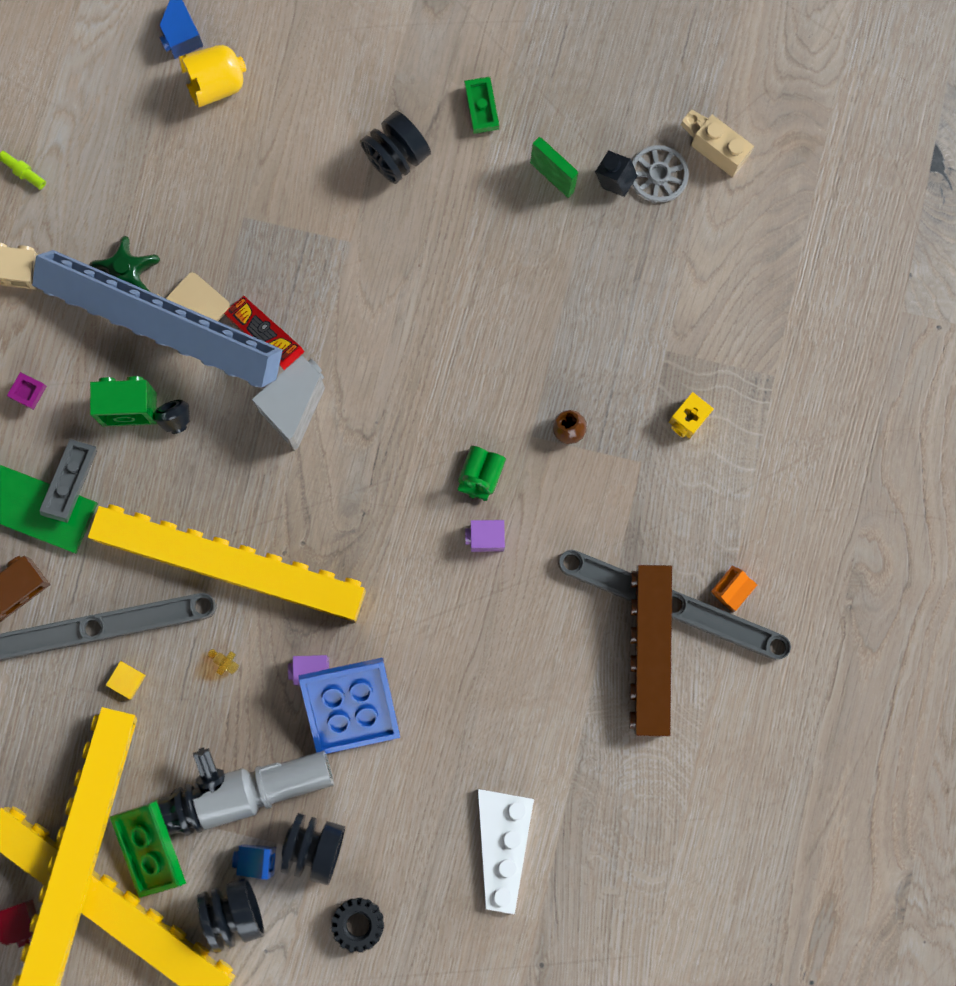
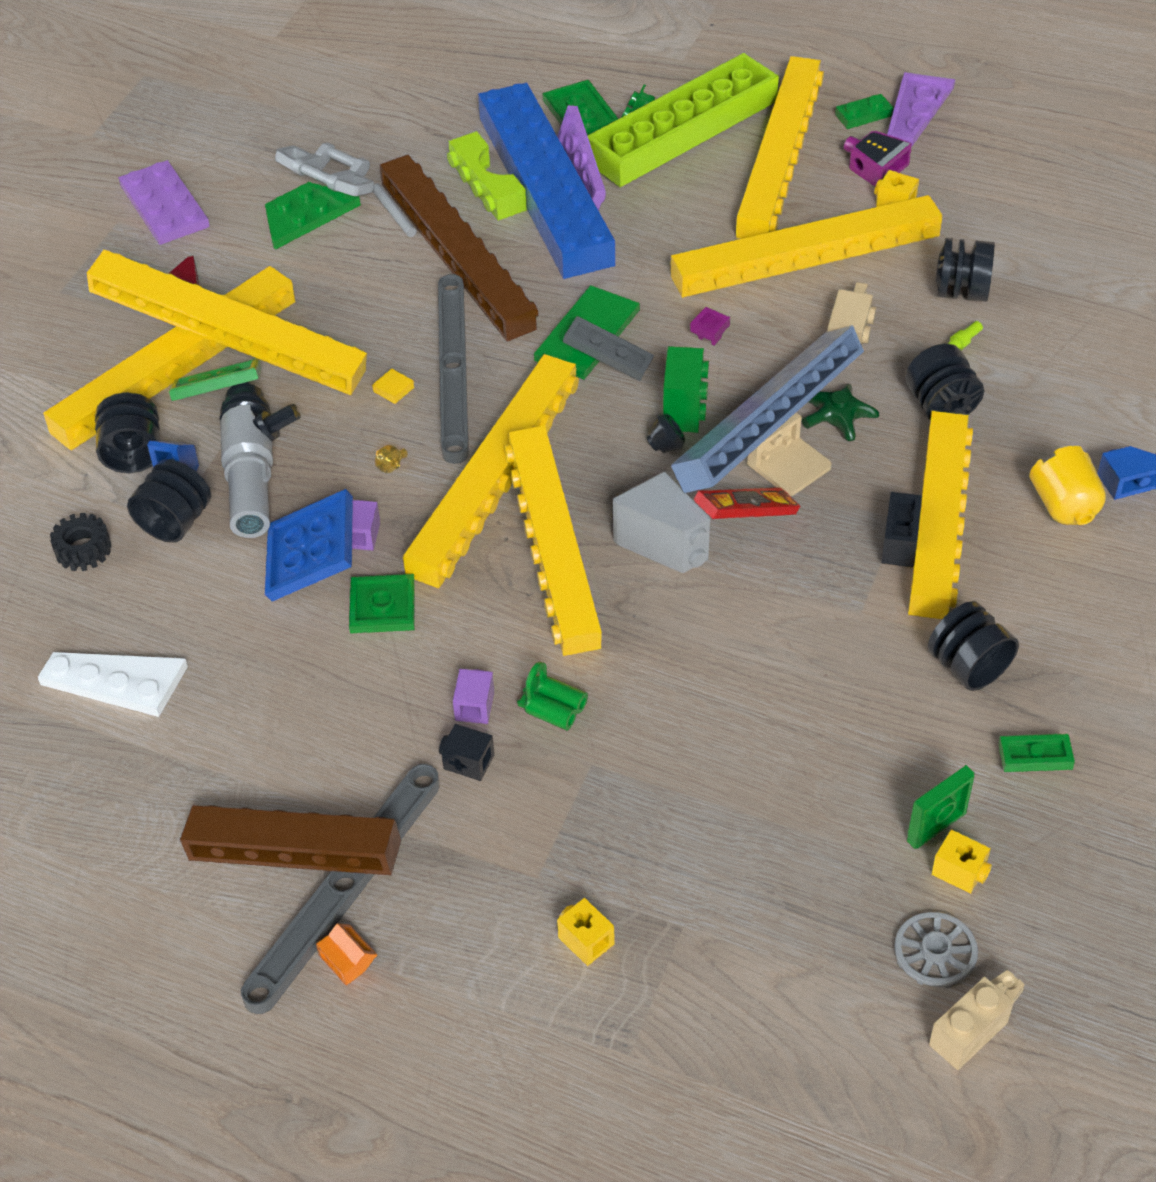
camera: 105 degrees right, 30 degrees down
(97, 176) = (944, 381): none -> black wheel
(241, 180) = (939, 516): none -> yellow brick
(271, 207) = (901, 529): none -> black brick
(317, 493) = (554, 542): none -> yellow brick
(392, 633) = (382, 603): none -> green tile
(543, 531) = (467, 752): none -> black brick
(569, 427) = (592, 792): reddish brown piece -> none
(586, 164) = (962, 862): none -> yellow brick
(616, 173) = (932, 883): black brick -> none

